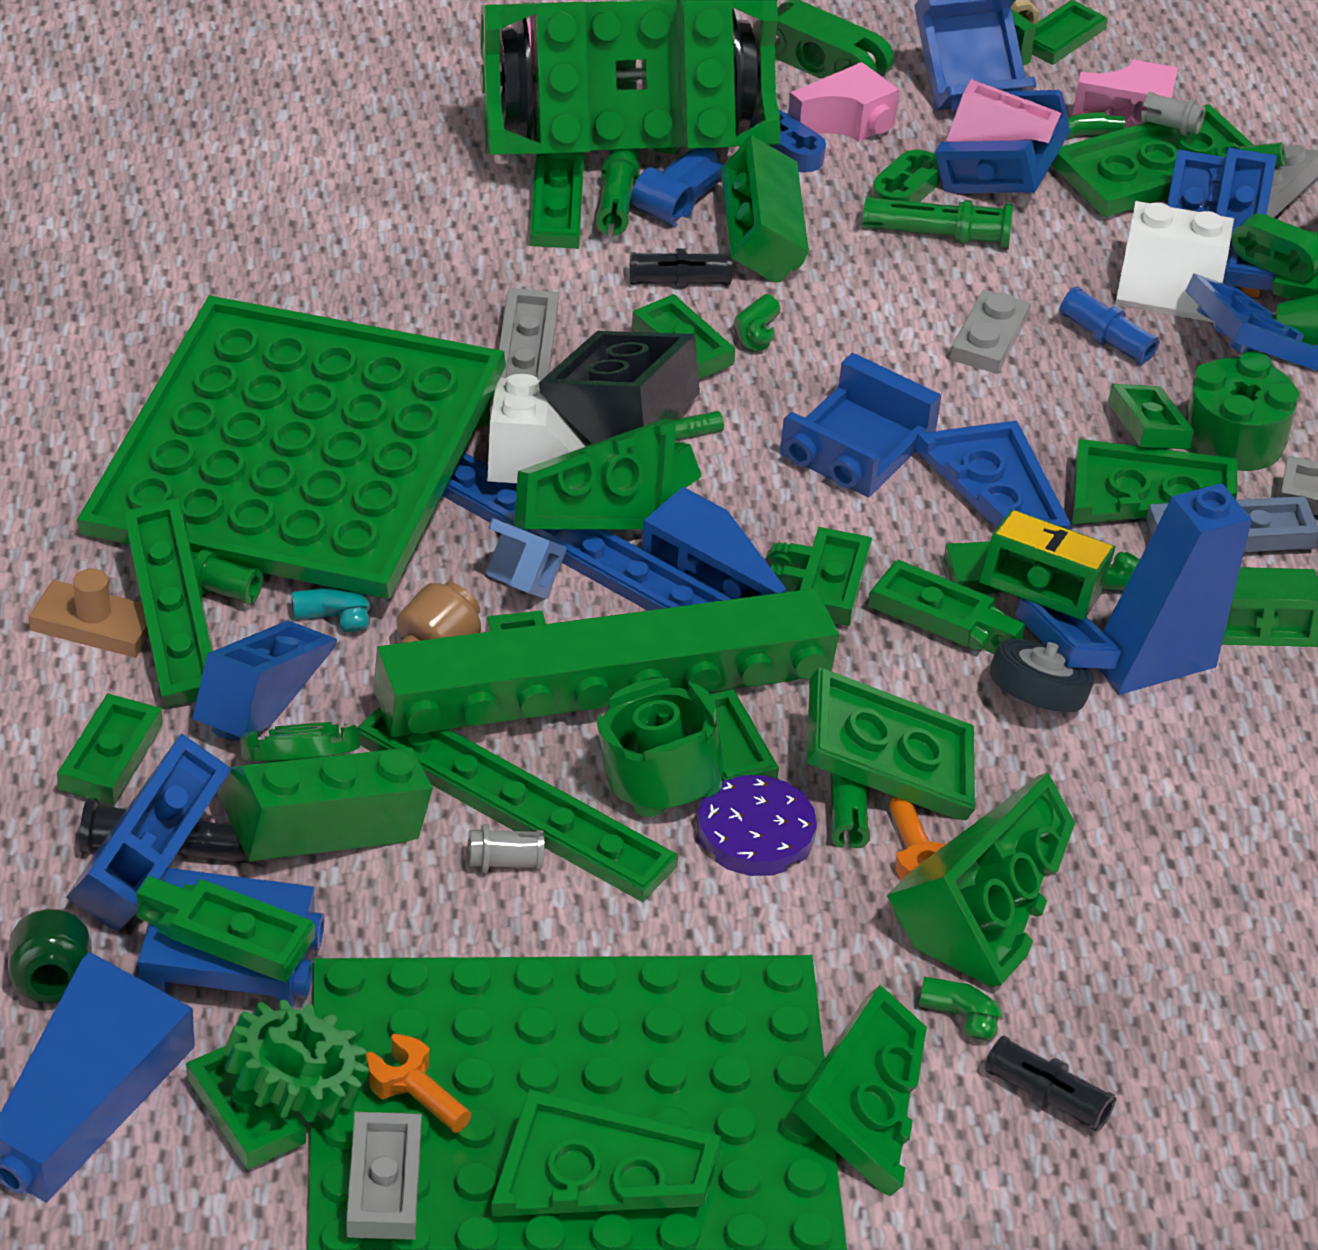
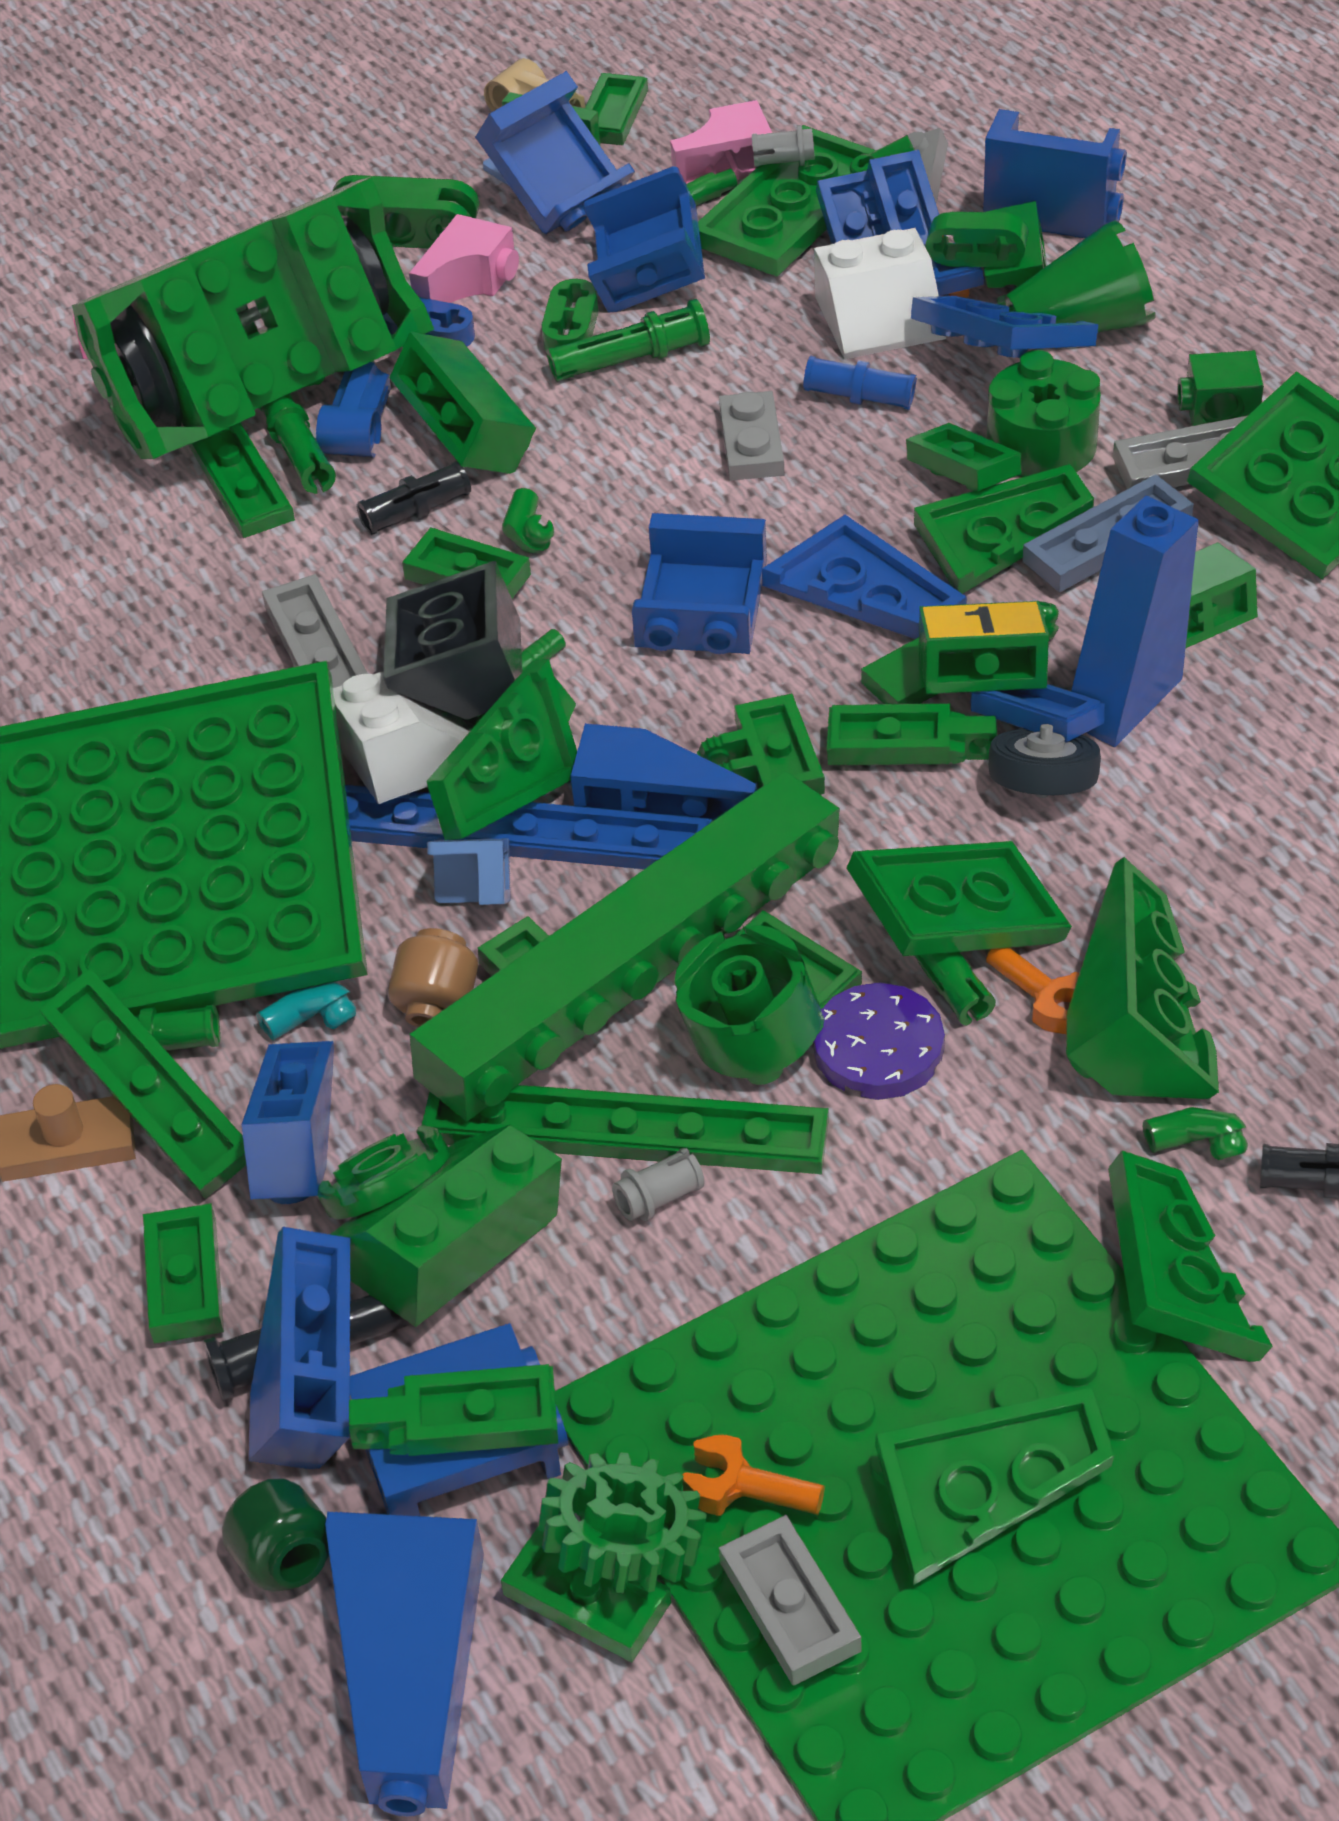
camera: 20 degrees left, 5 degrees up
(1000, 116) = (633, 215): bright pink arch -> none

